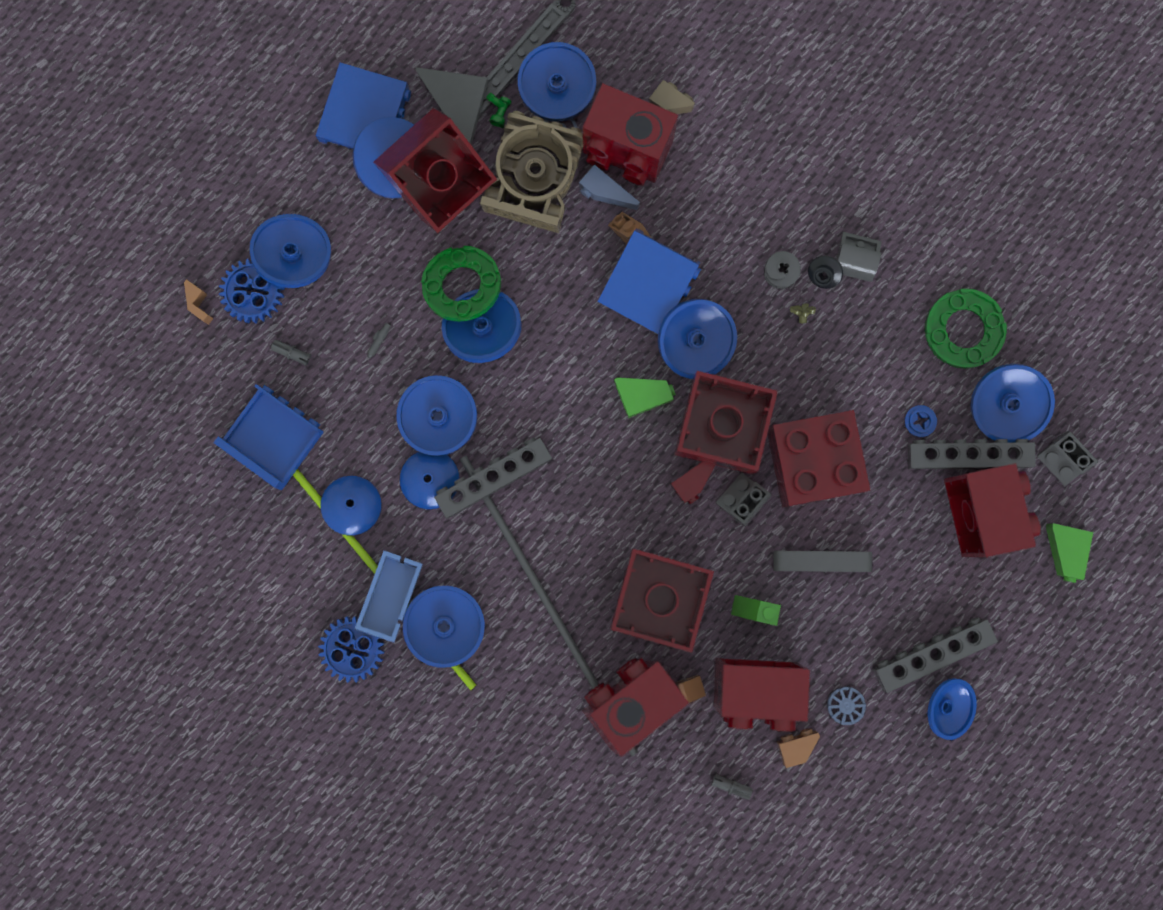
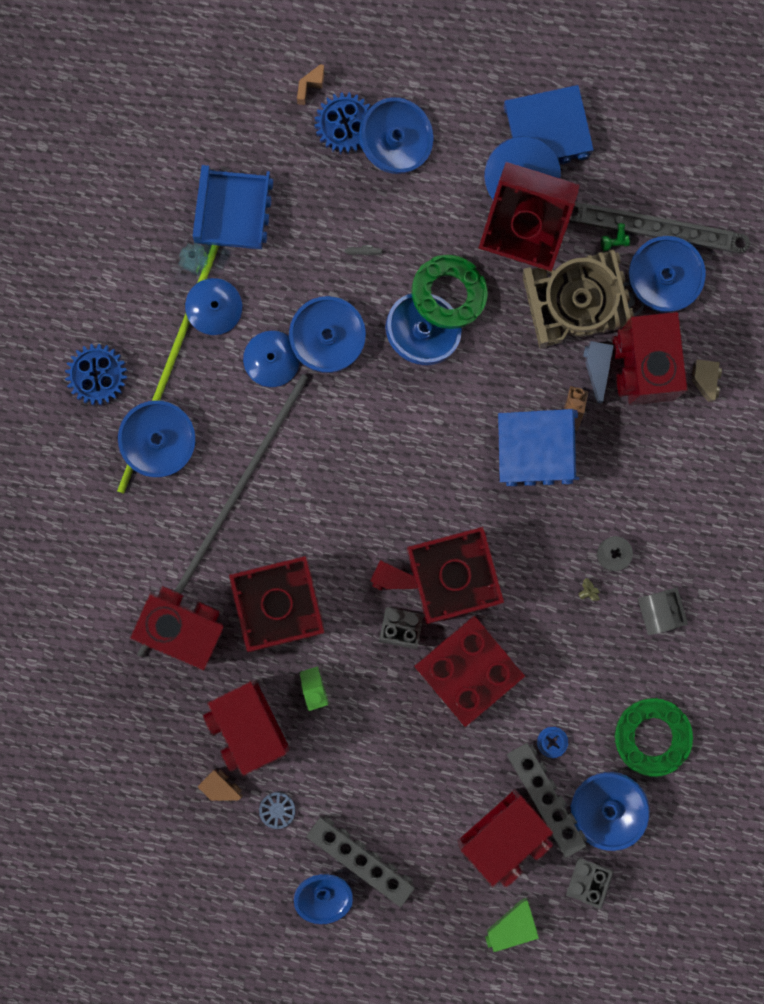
camera: 55 degrees right, 0 degrees up
(291, 352) = (312, 184): dark grey axle -> none
(301, 502) = (193, 264): none -> clear light blue brick
(388, 596) = (155, 380): medium blue piece -> none
(457, 96) = (605, 200): dark grey tile -> none
(534, 447) = (256, 389): dark grey brick -> none
(643, 394) = (442, 496): bright green slope -> none
(691, 688) = (217, 671): medium nougat slope -> none
(697, 338) = (514, 514): blue dish -> none
(732, 787) = (157, 751): dark grey axle -> none
(822, 561) = (386, 724): dark grey beam -> none
(830, 266) = (638, 594): black piece -> none

